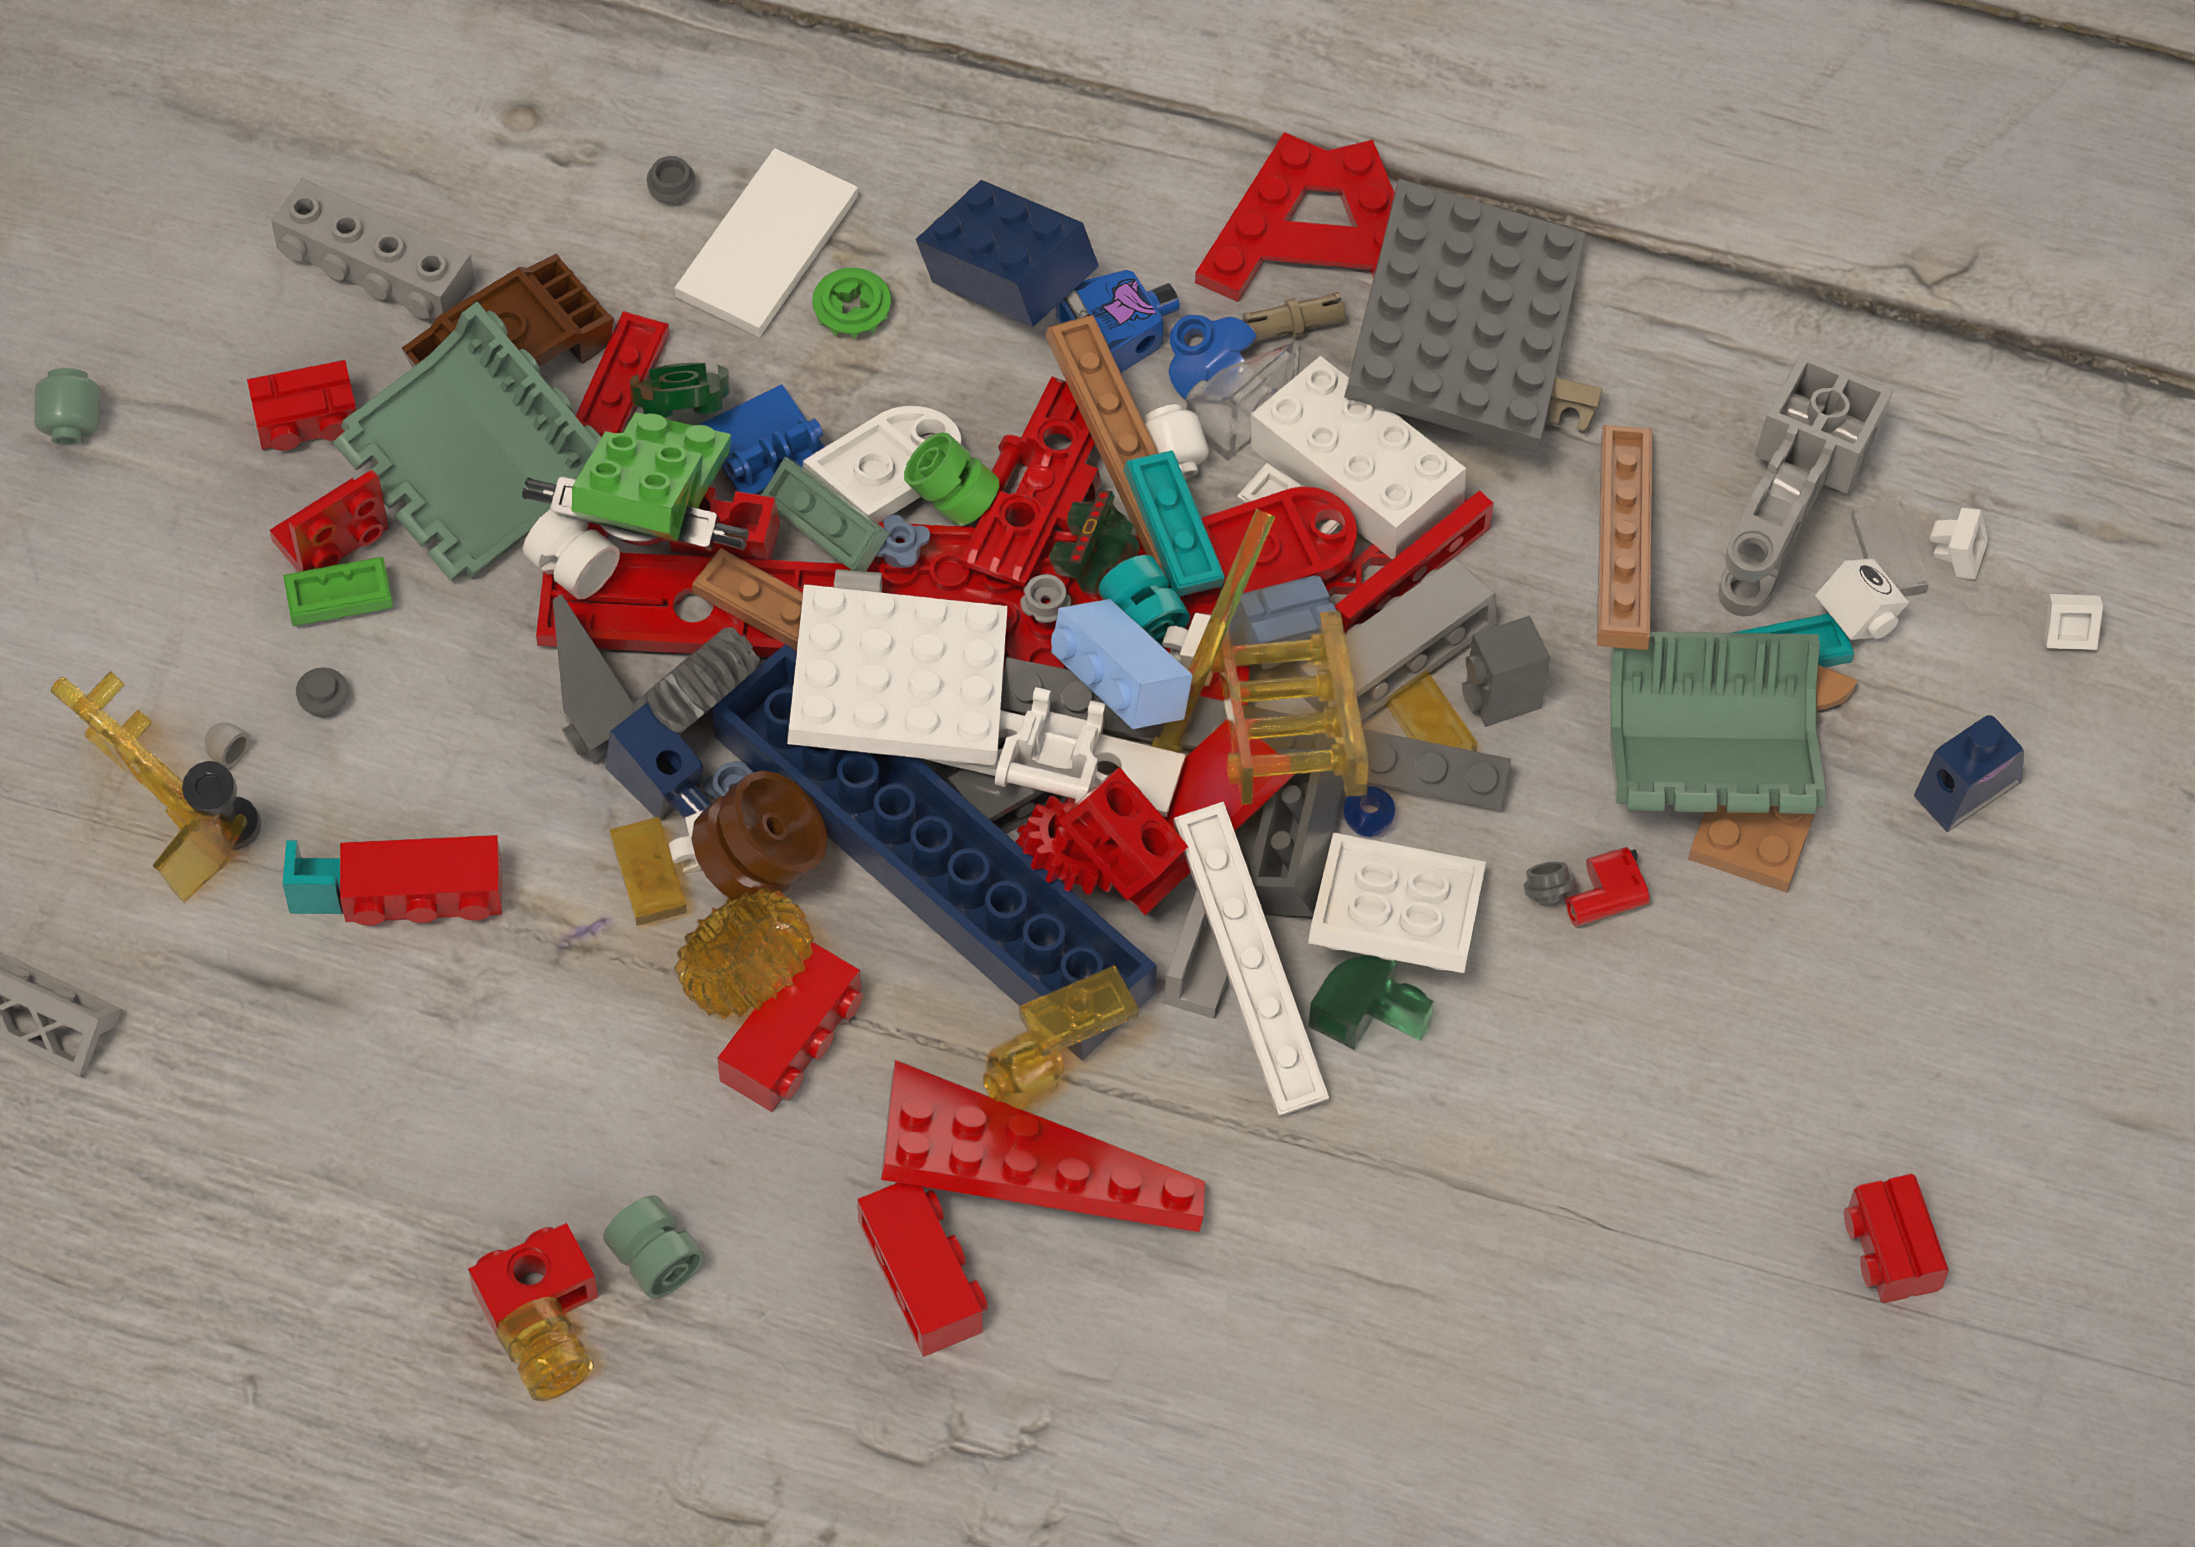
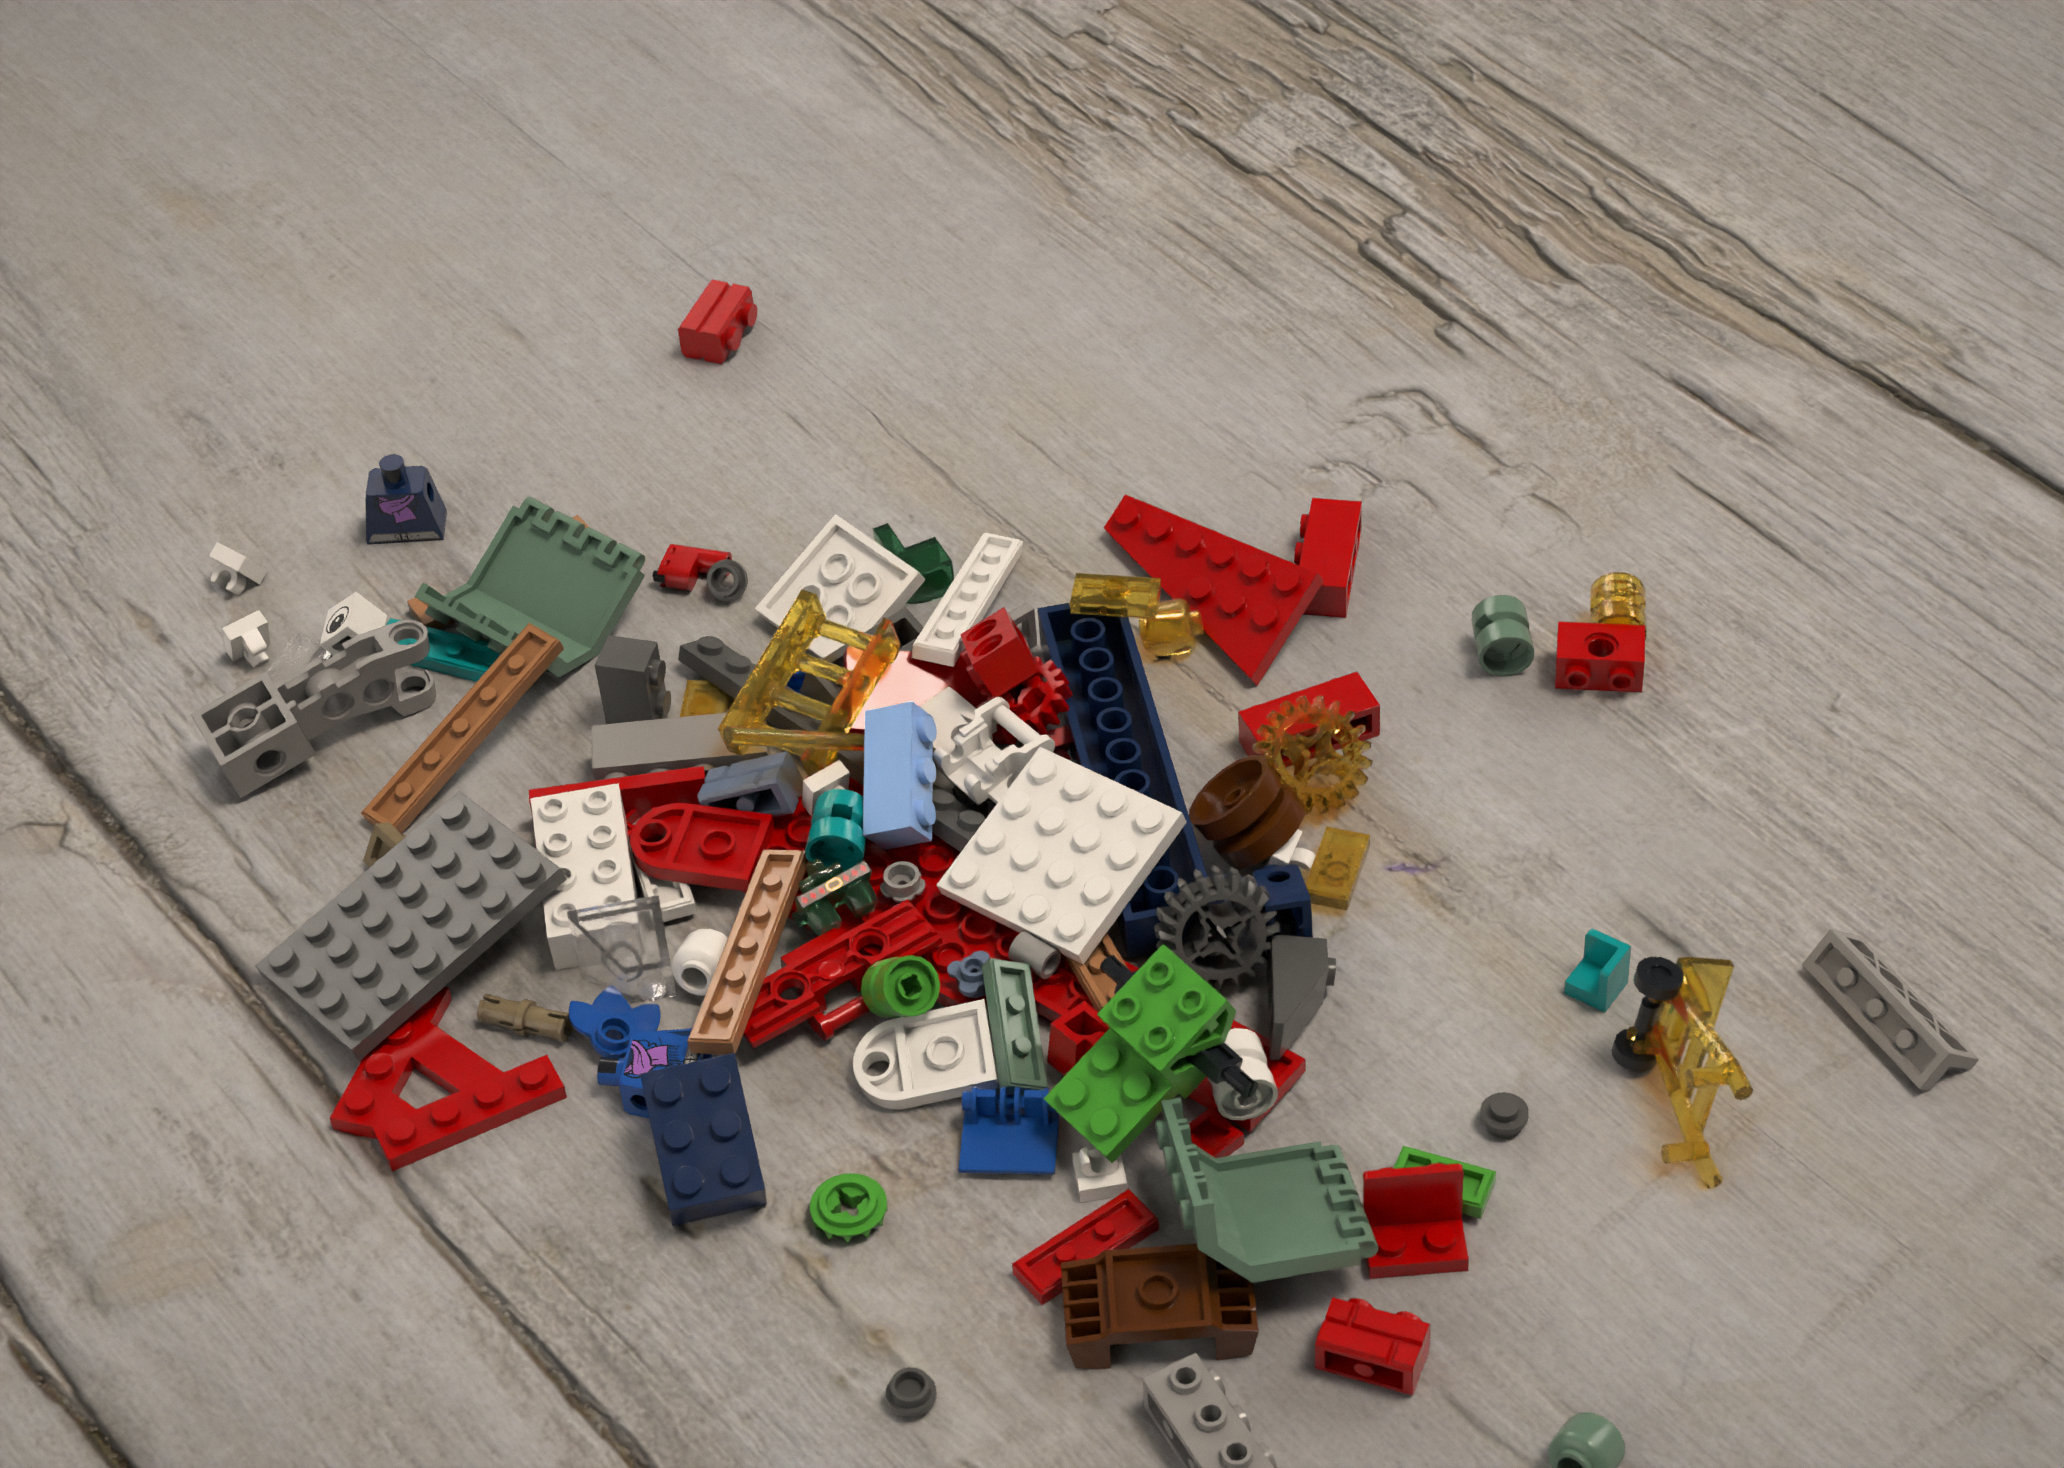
camera: 140 degrees left, 15 degrees down
(226, 743) = (1608, 1107): light grey hinge -> none
(421, 879) = (1512, 934): red brick -> none
(679, 388) = (1073, 1169): dark green plate -> none
(766, 242) = (873, 1298): white tile -> none
(1174, 523) = (767, 871): teal tile -> none

